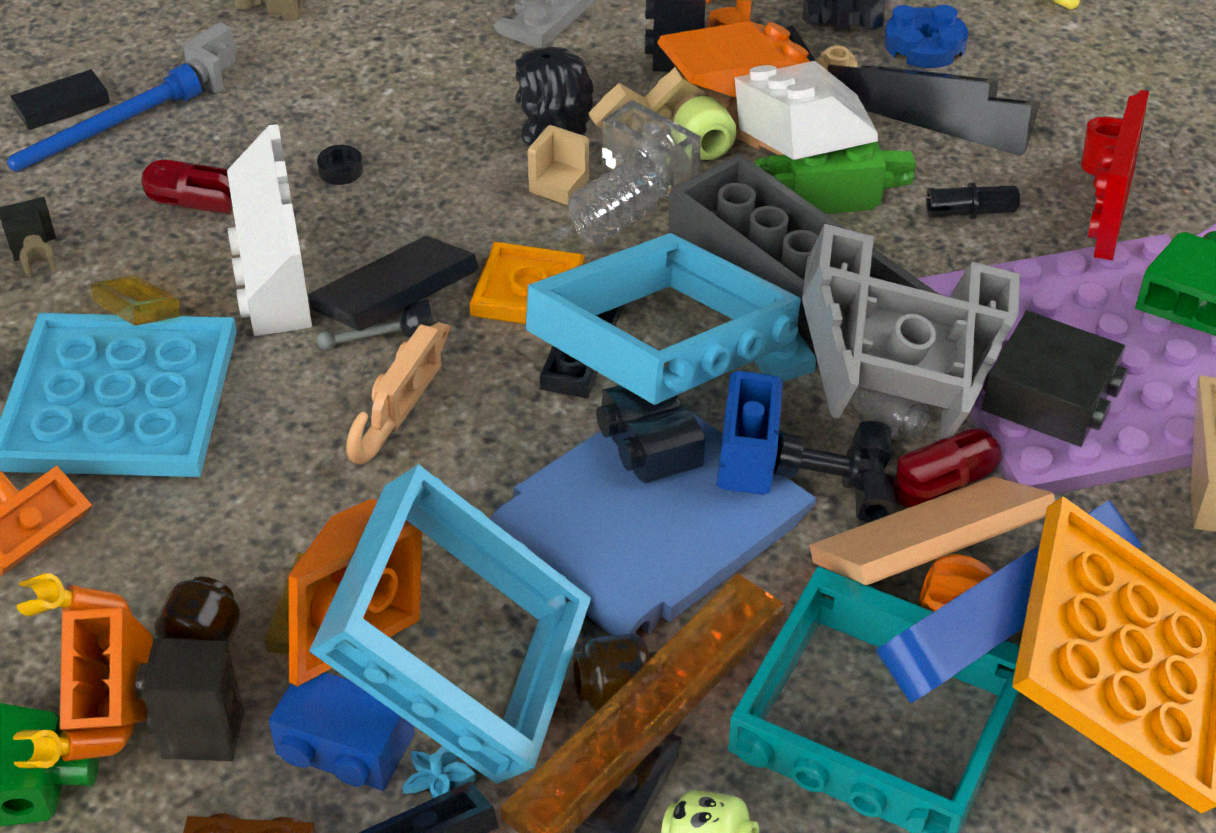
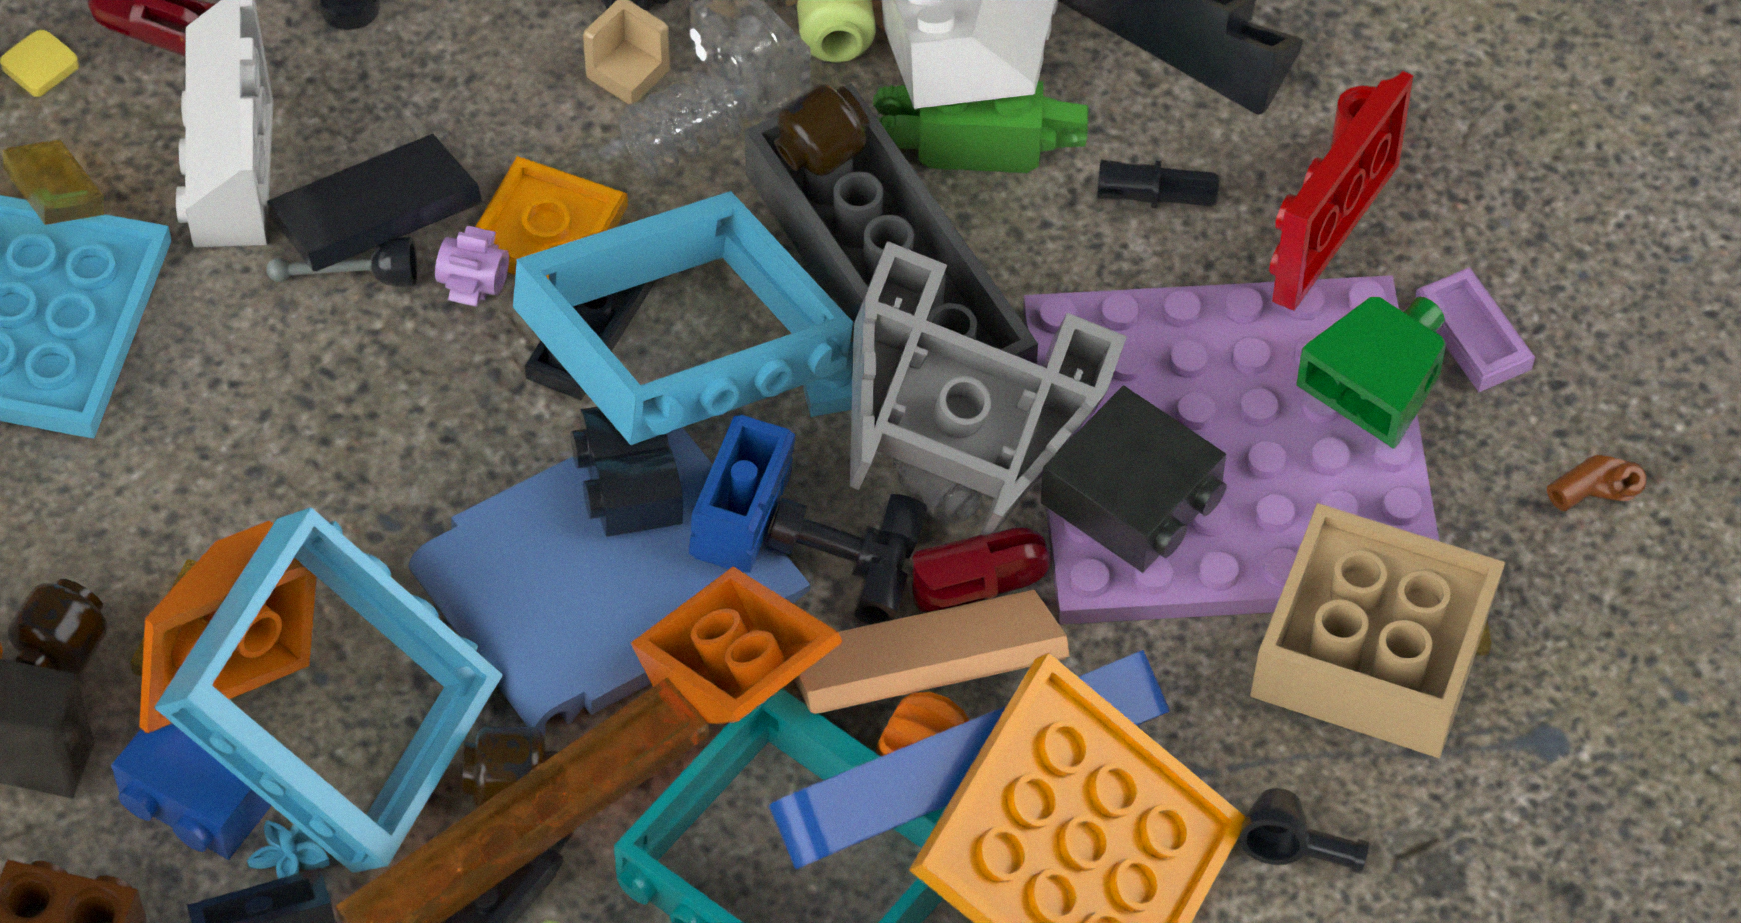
camera: 10 degrees right, 10 degrees up
(109, 231) = (39, 62): none -> light yellow piece
(397, 391) = (349, 358): light nougat plate -> none
(481, 313) = (472, 266): none -> lavender gear
(734, 175) = (821, 129): none -> dark brown head
(790, 540) = (733, 646): none -> orange slope

